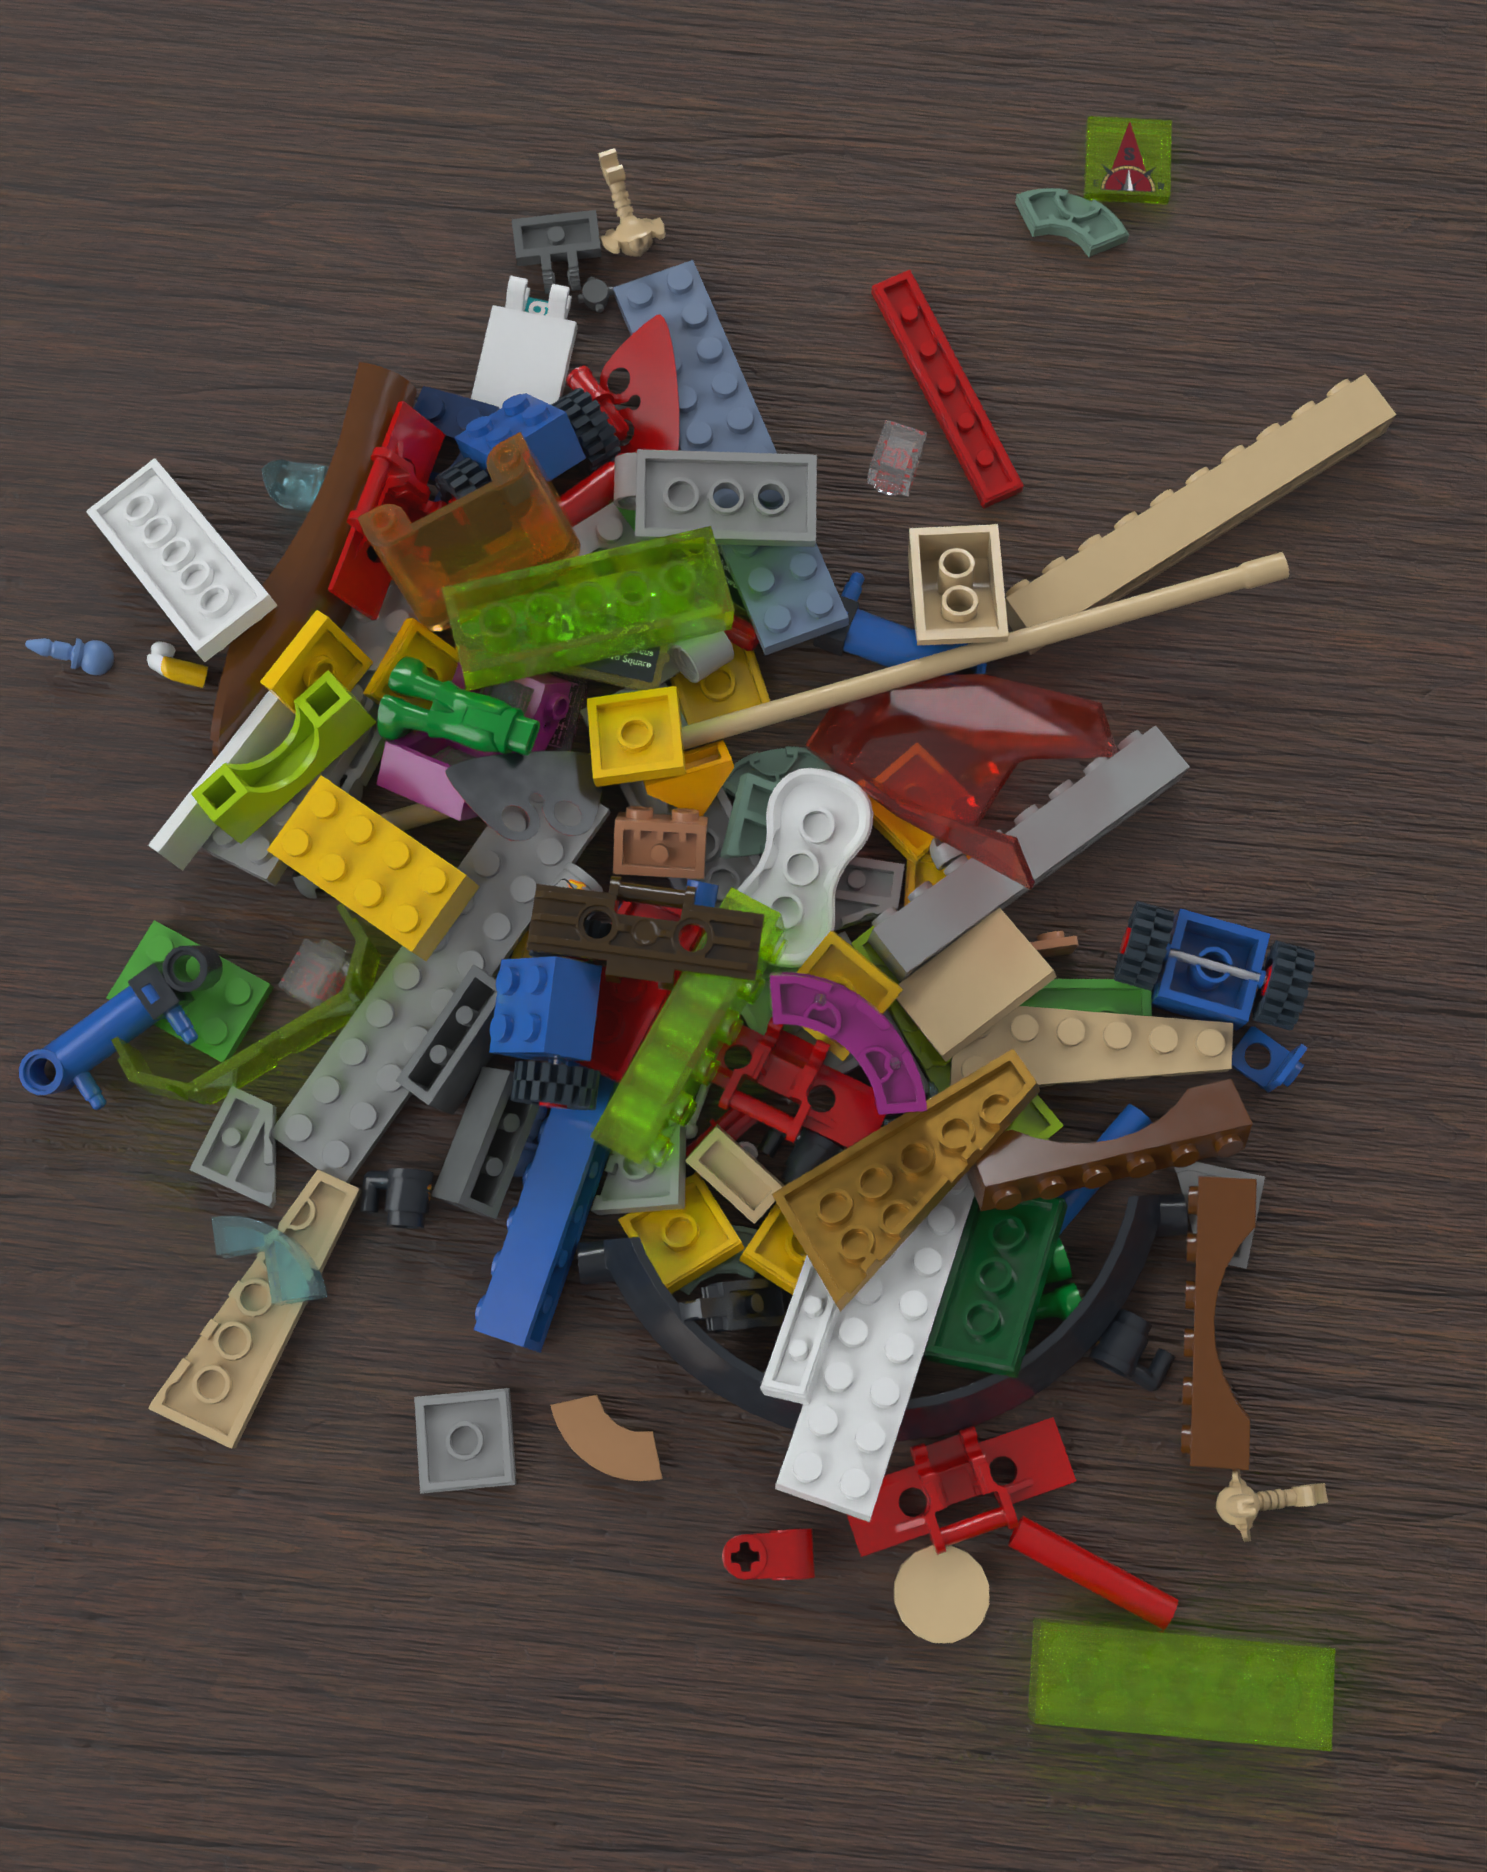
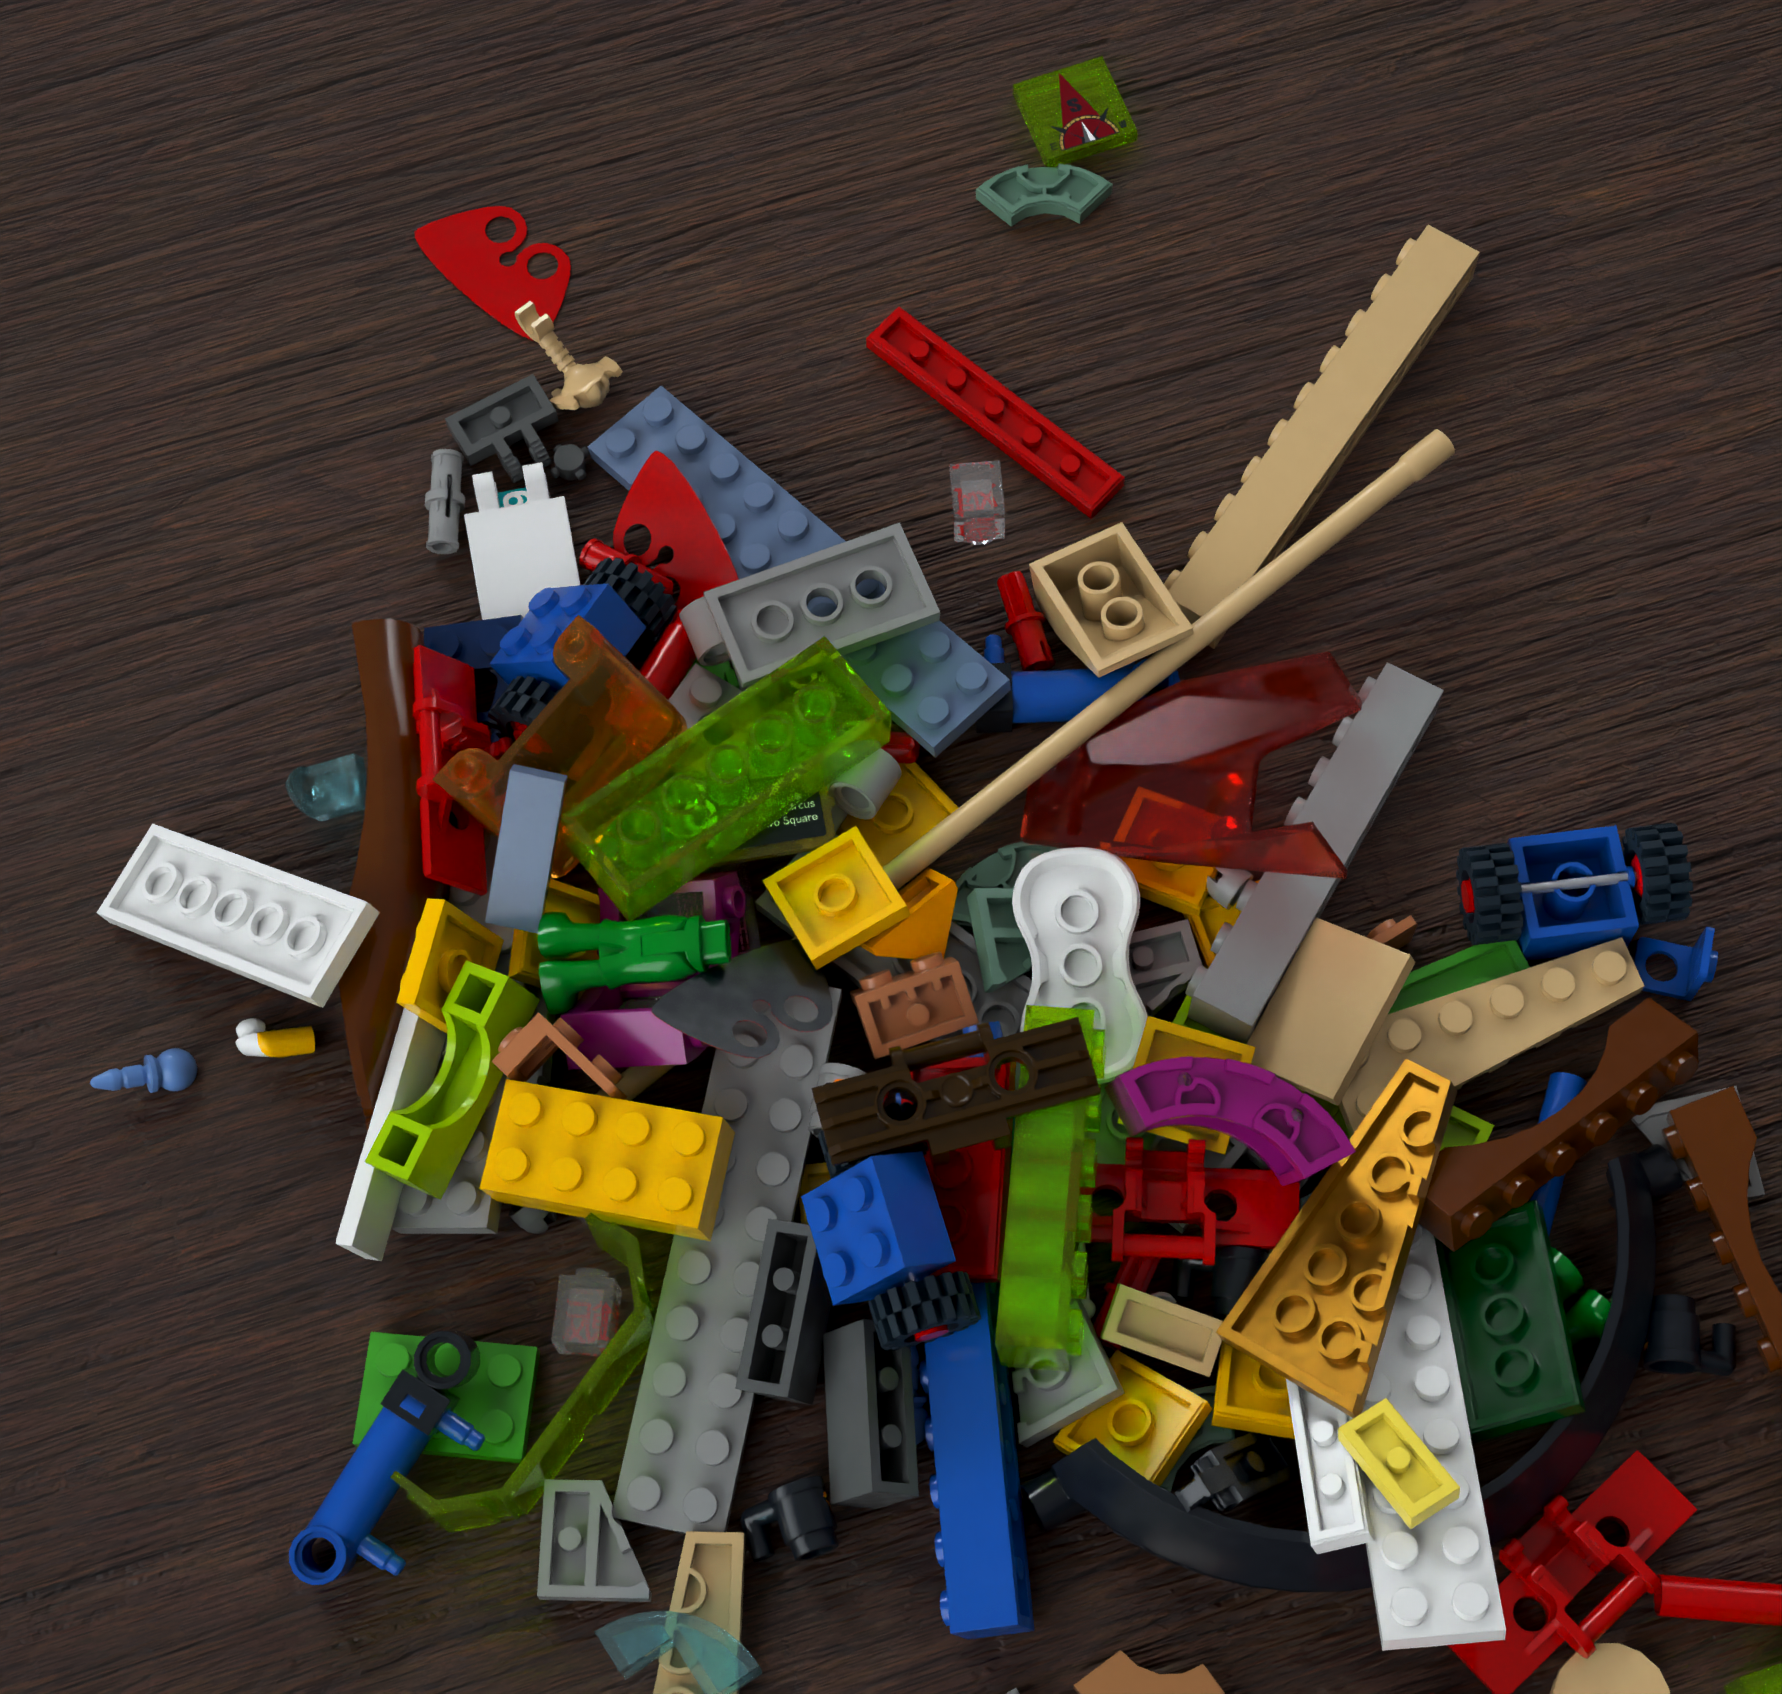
camera: 20 degrees left, 10 degrees down
(350, 757) = (530, 1047): none -> nougat bracket
(408, 600) = (526, 848): none -> sand blue tile
(494, 265) = (444, 501): none -> light grey pin
(591, 95) = (472, 264): none -> red piece
(852, 1357) = (1398, 1463): none -> light yellow plate
(889, 573) = (1025, 623): none -> red axle

